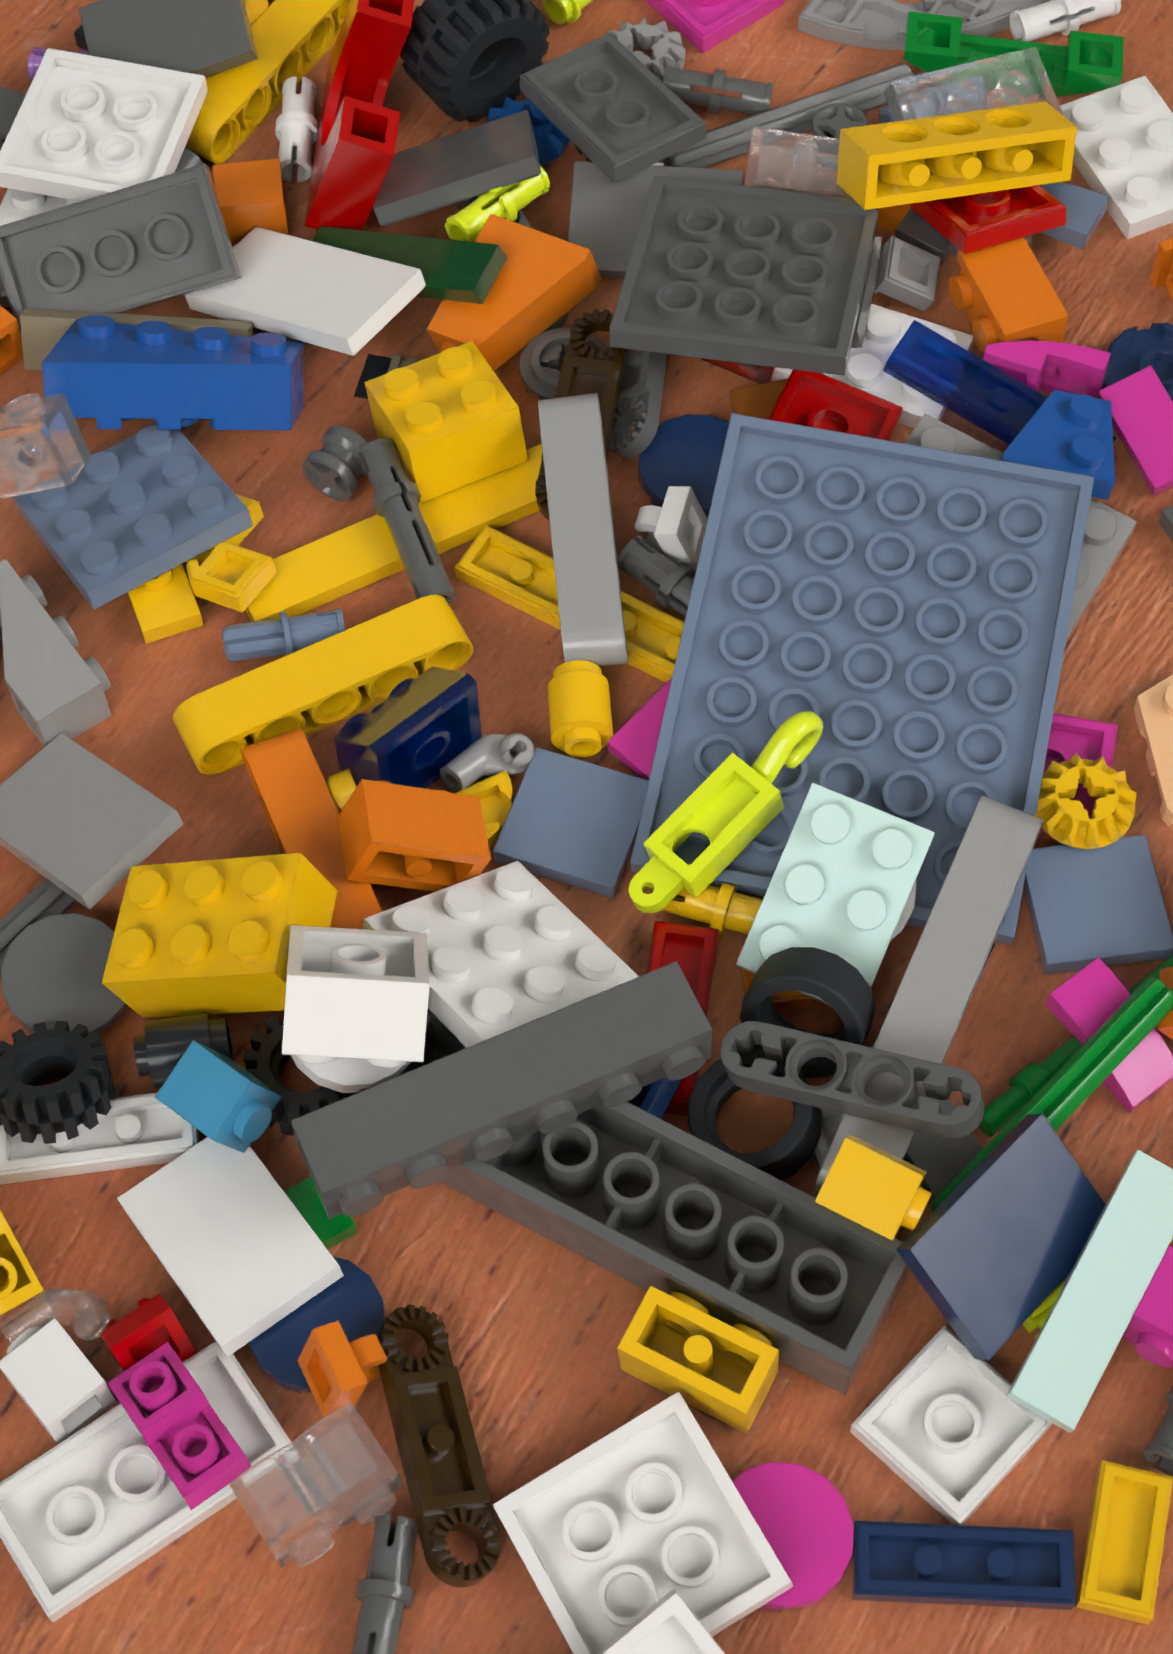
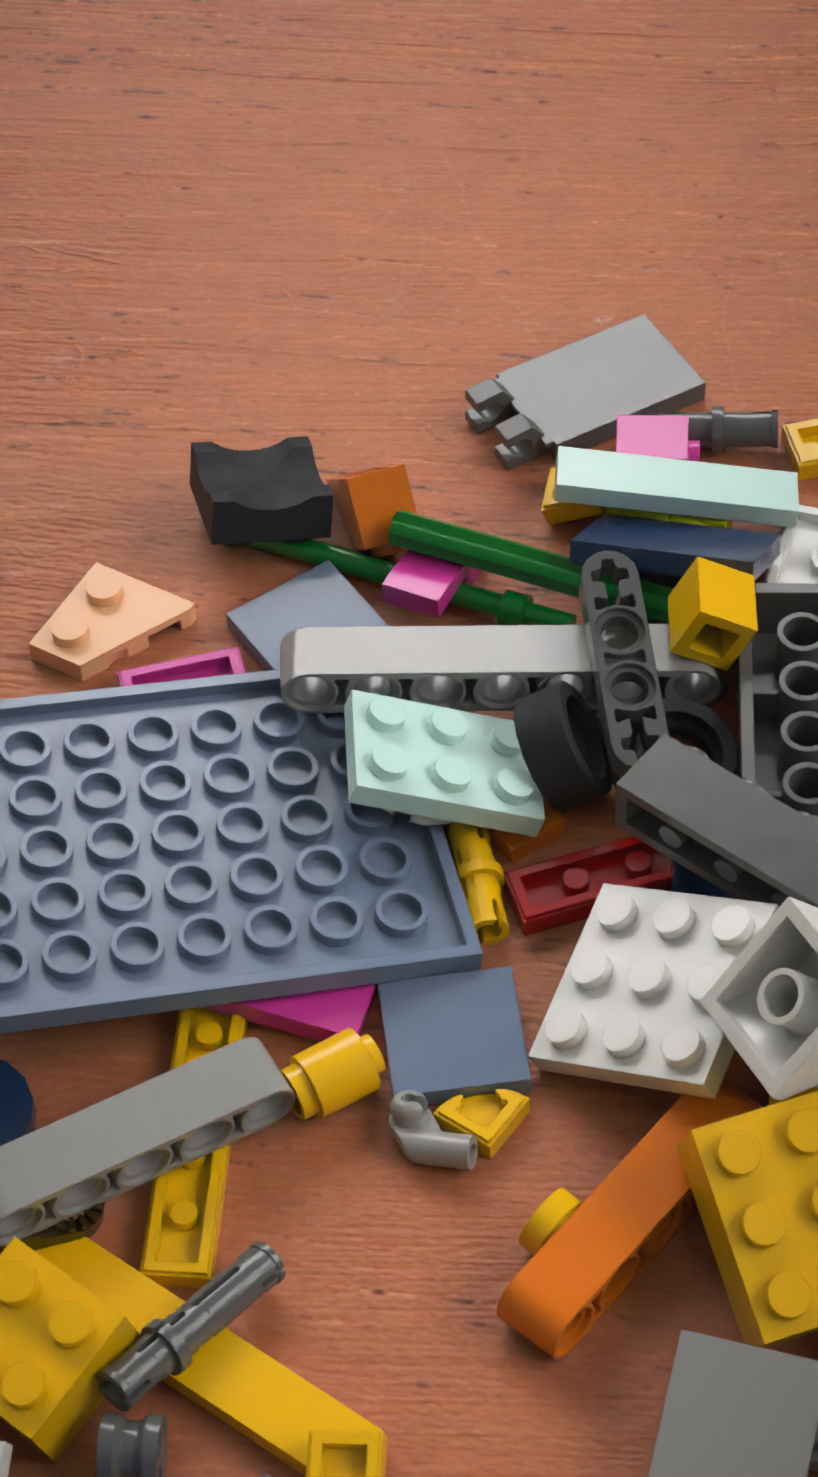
camera: 115 degrees left, 10 degrees down
(279, 635) = (386, 1392): sand blue axle -> none
(321, 682) = (433, 1322): yellow beam -> none
(412, 836) = (574, 1120): orange brick -> none
(413, 730) = (454, 1185): clear blue slope -> none
(658, 573) = (139, 1053): dark grey pin -> none
(676, 526) = (65, 1083): white tile -> none
(726, 809) = (400, 872): neon yellow piece -> none
(1067, 819) = (193, 652): yellow gear -> none

